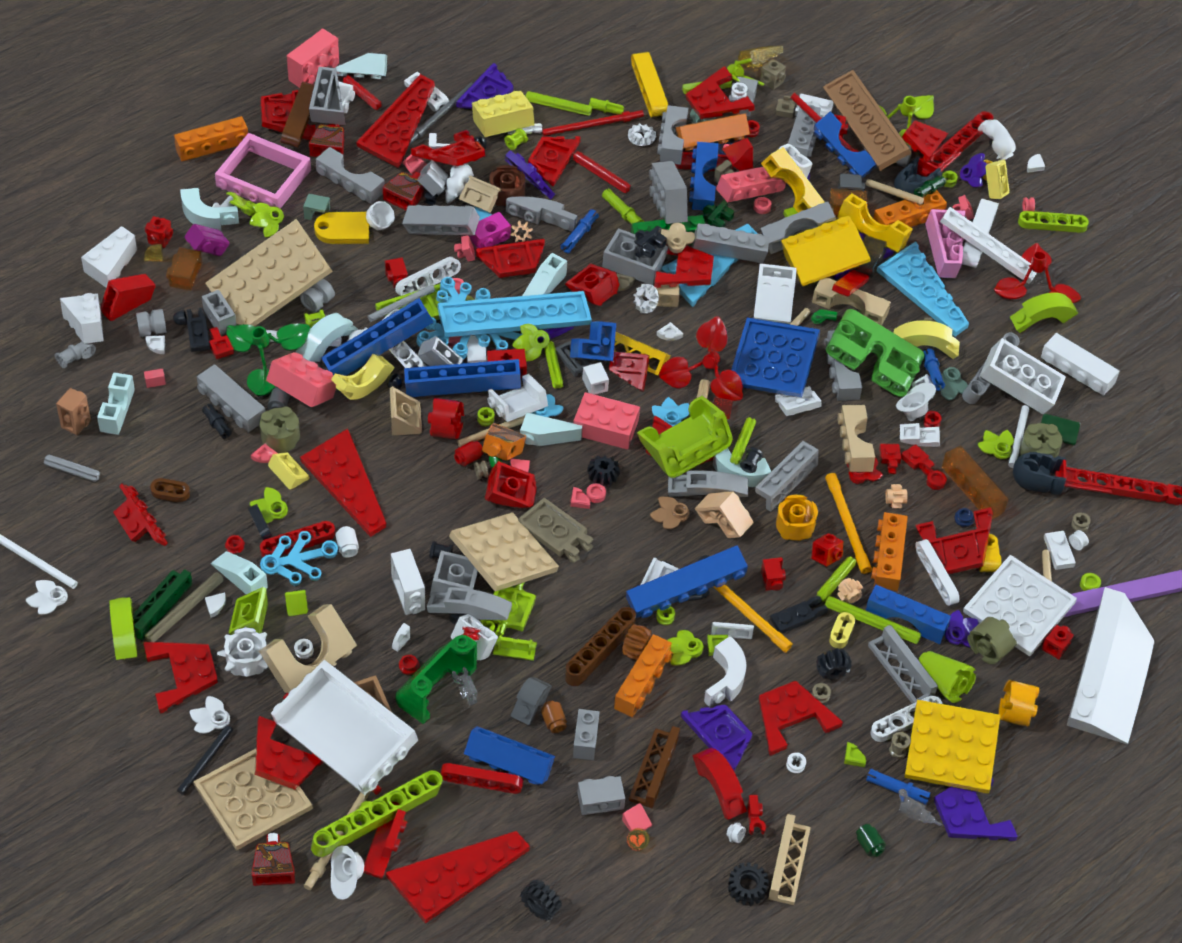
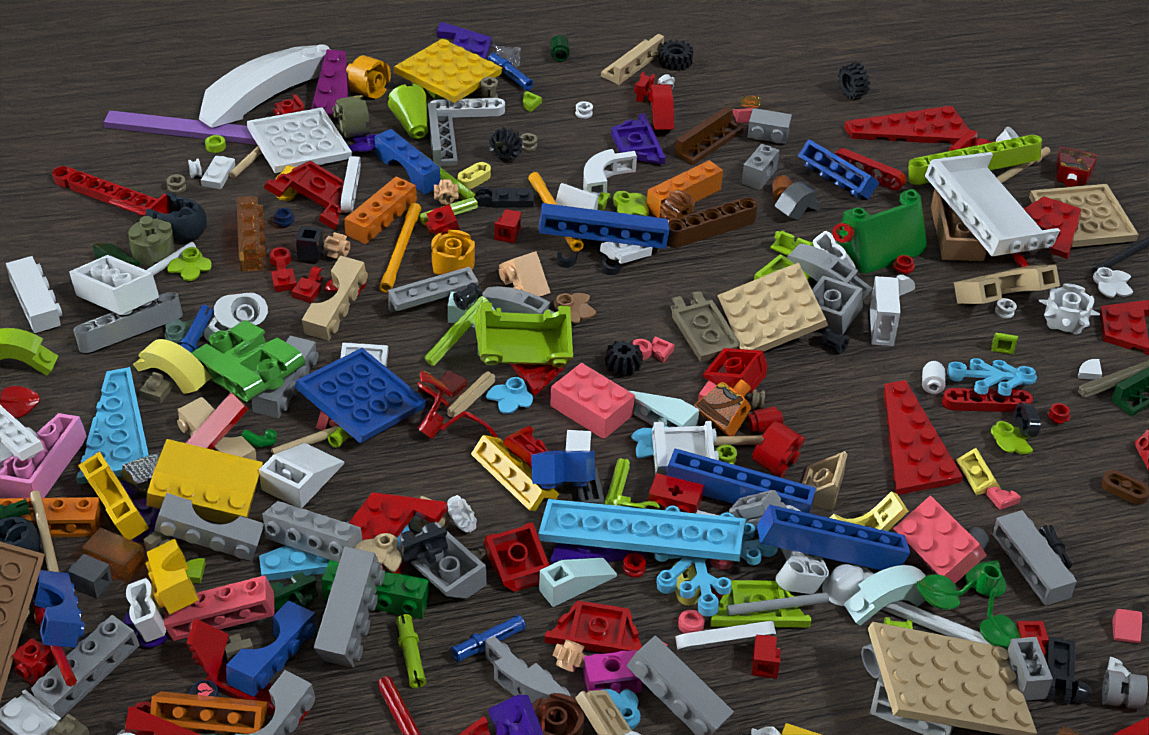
camera: 155 degrees left, 10 degrees down
(240, 572) = (1059, 376): light aqua slope -> none
(250, 611) = (1057, 344): lime slope -> none
(280, 429) = (980, 503): olive brick -> none
(670, 333) = (454, 482): white tile -> none
(789, 706) = (564, 144): red wing -> none
(913, 434) = (270, 294): white slope -> none
(917, 484) = (308, 248): none -> black brick
(1038, 672) = (331, 82): none -> magenta wing

